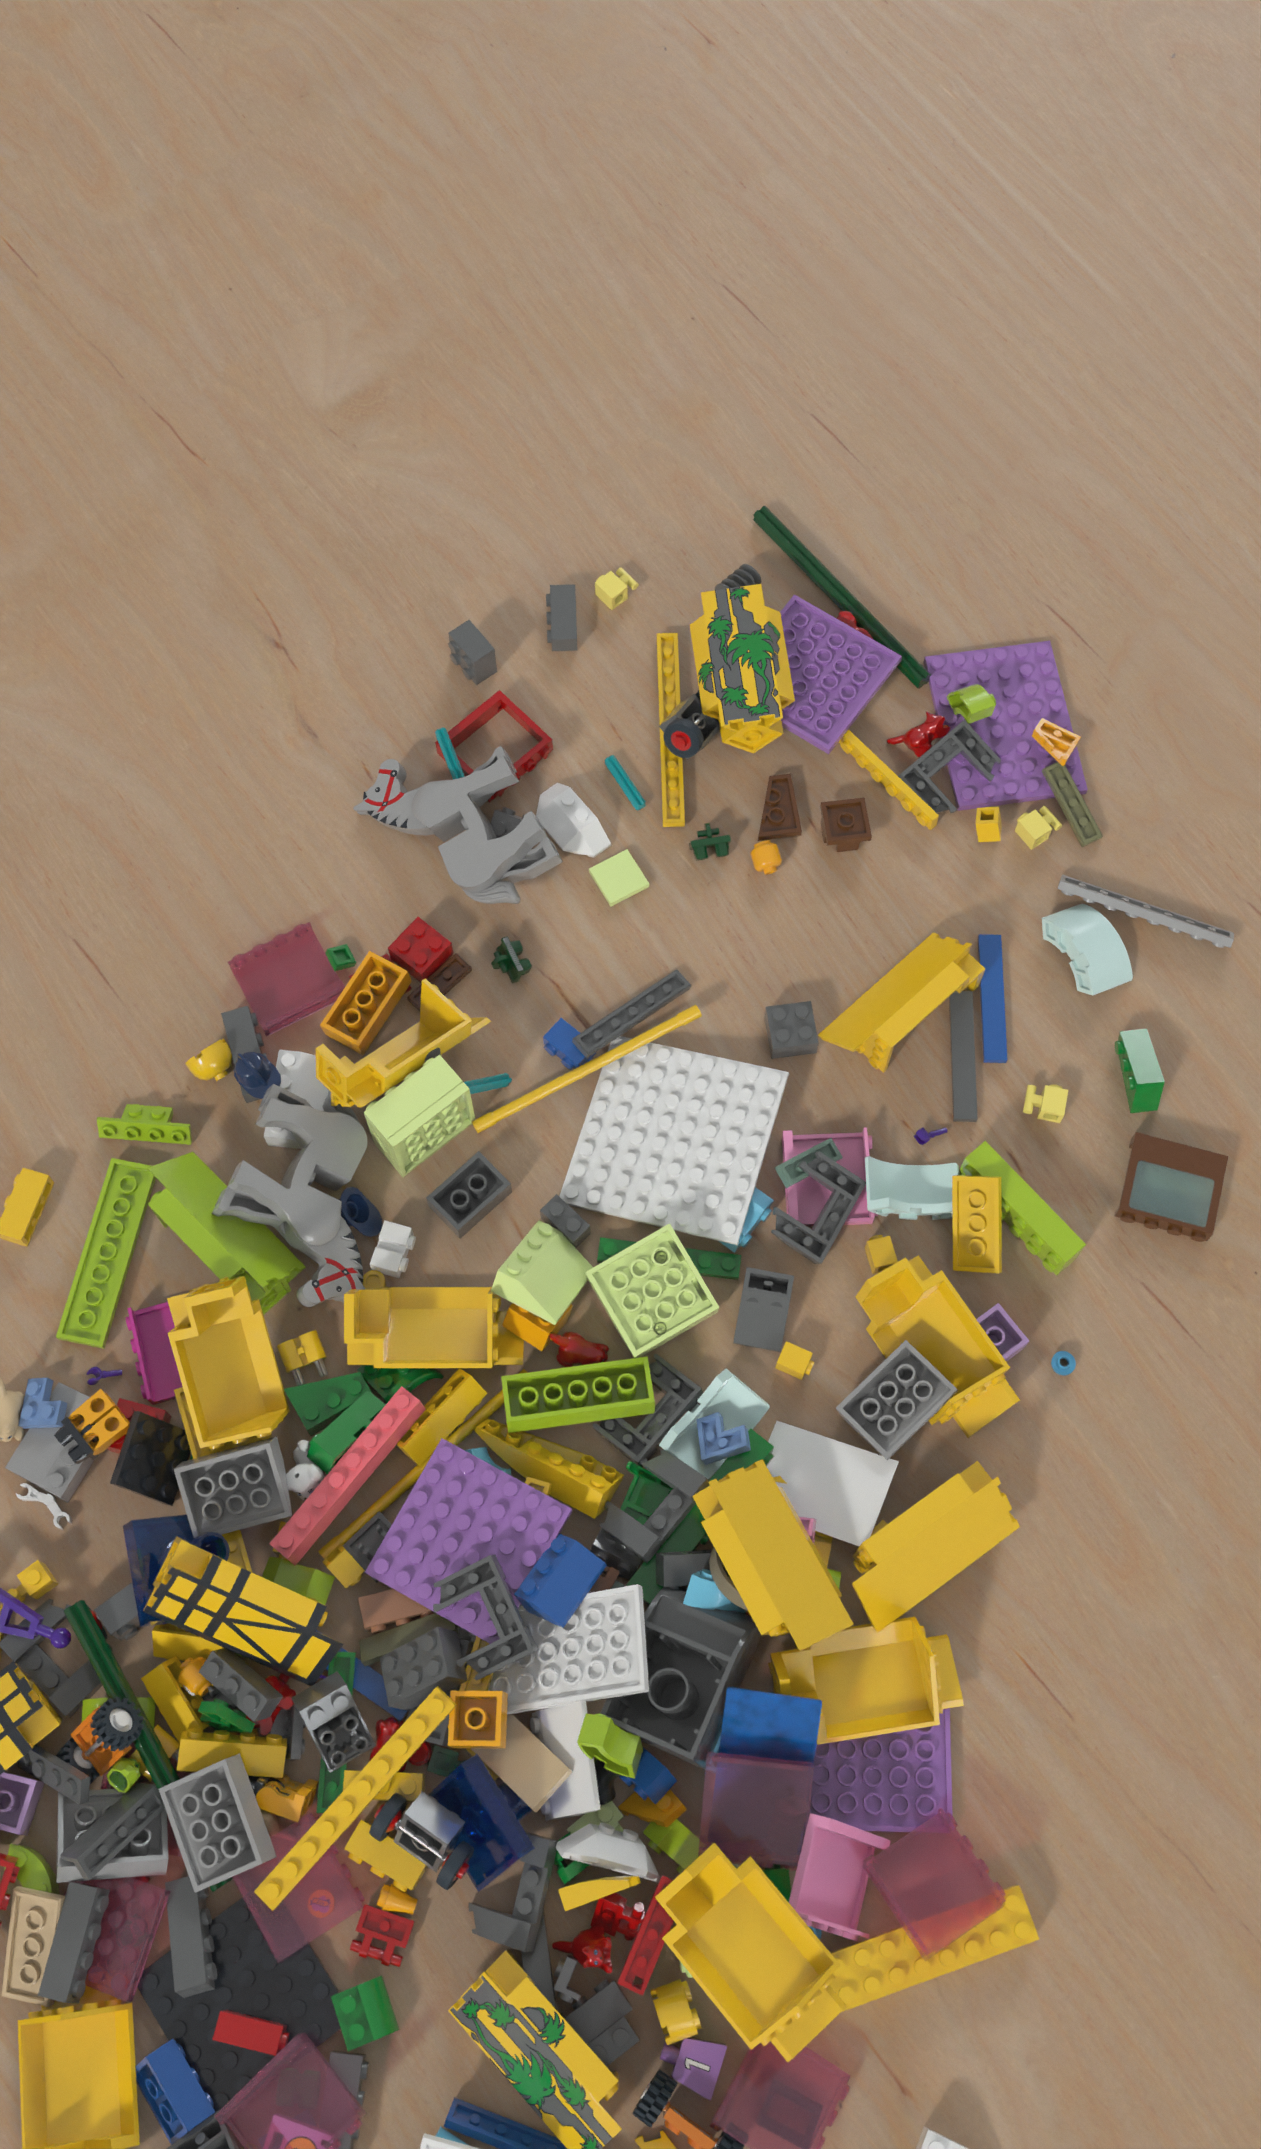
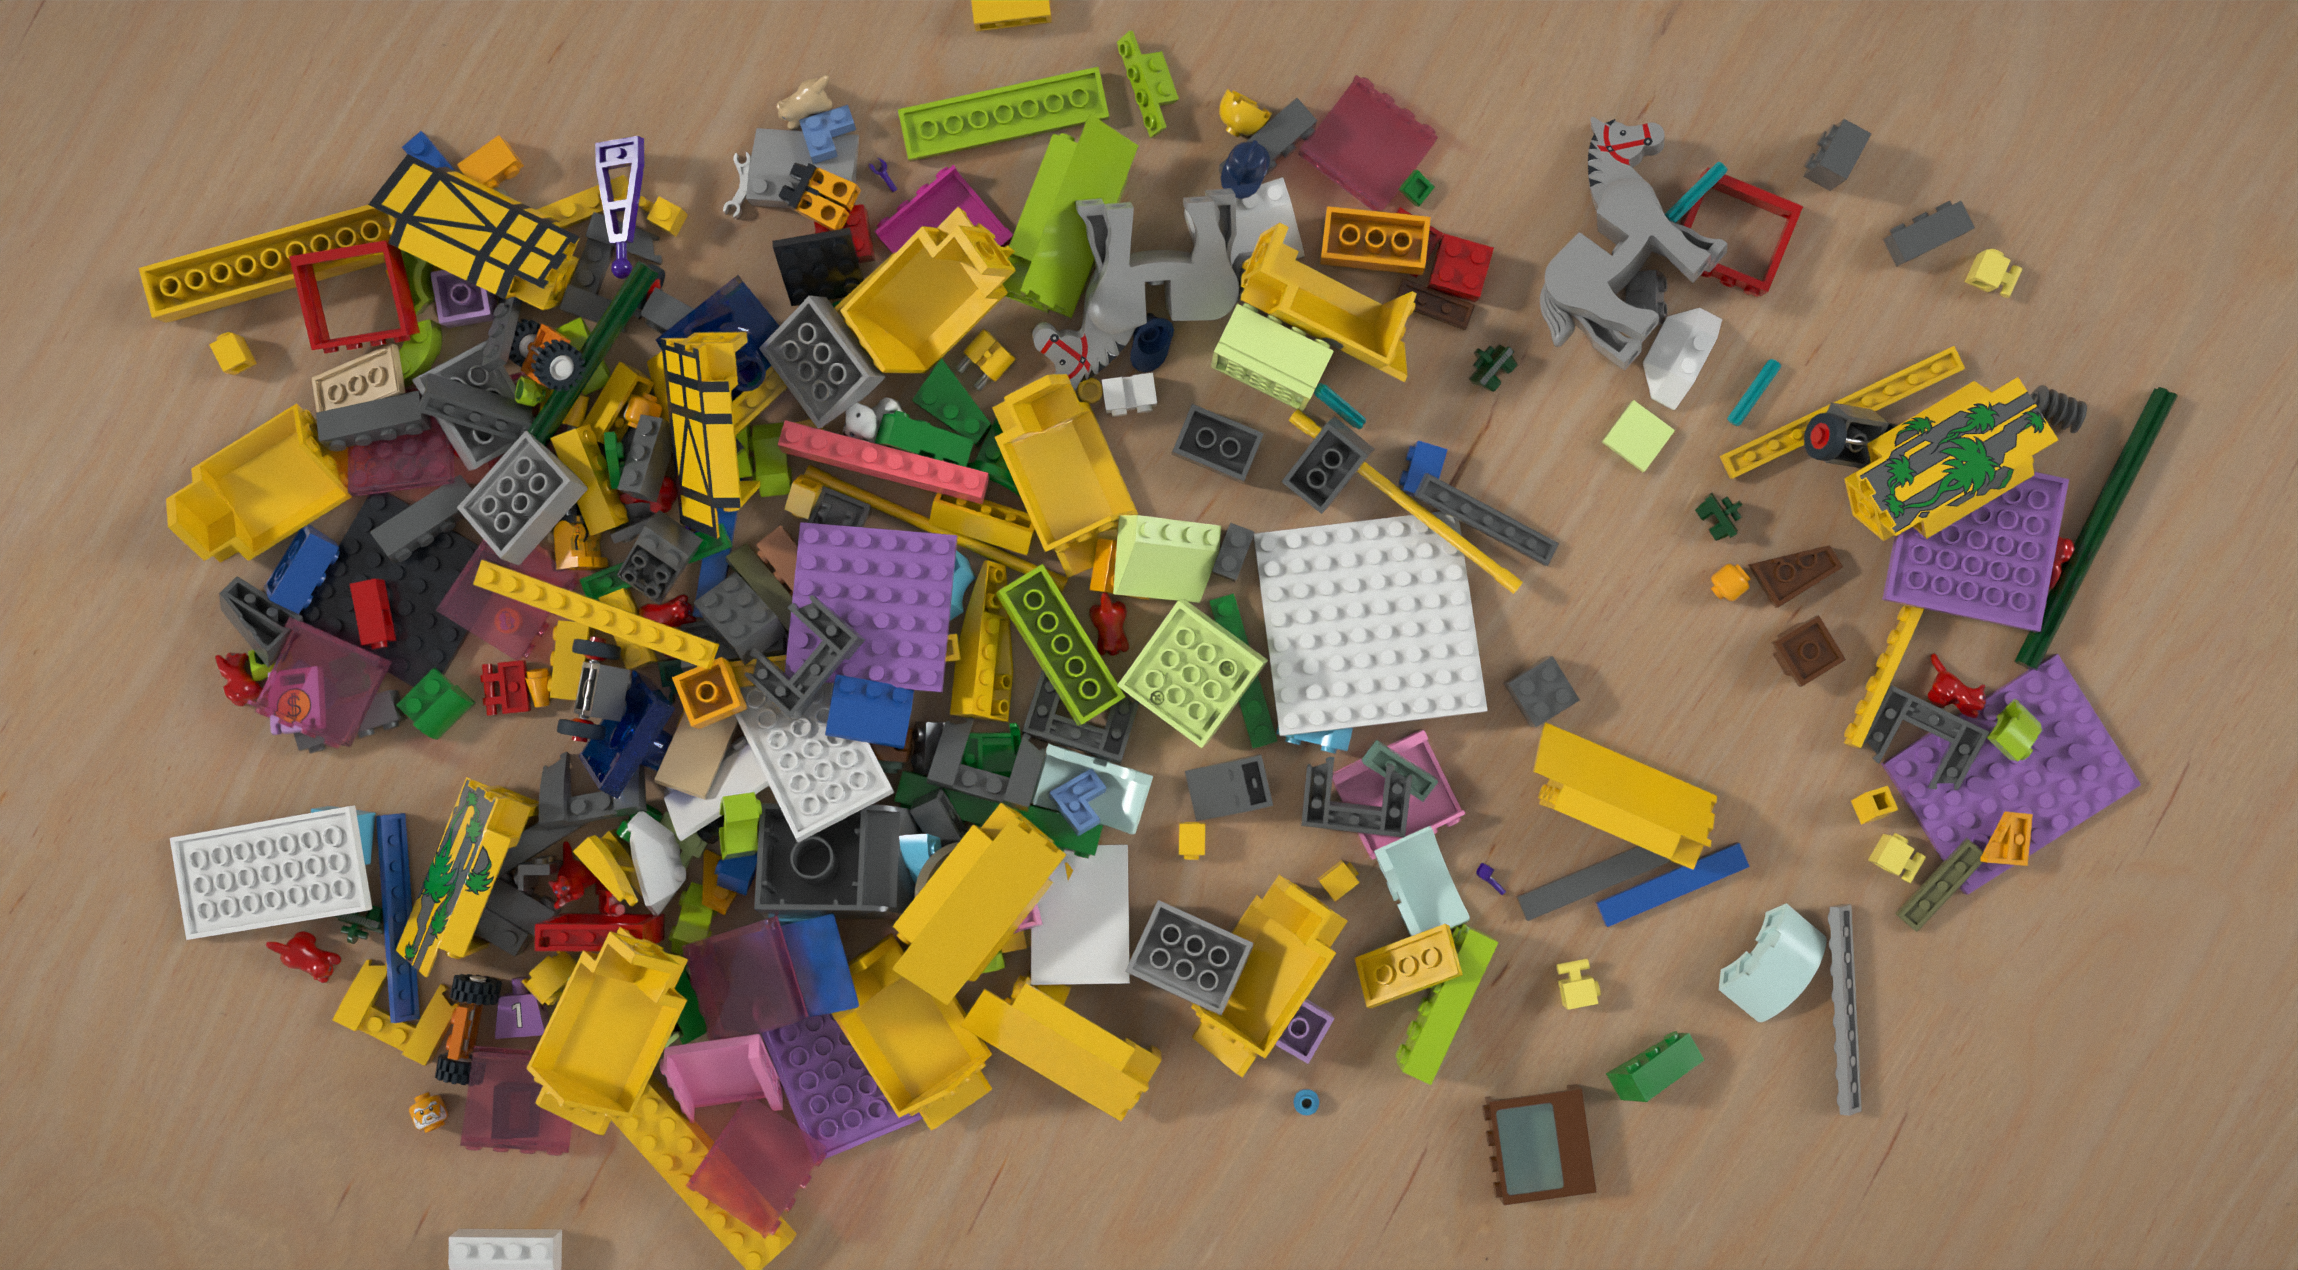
camera: 65 degrees right, 20 degrees up
(529, 1112) = (1328, 465): none -> dark grey brick

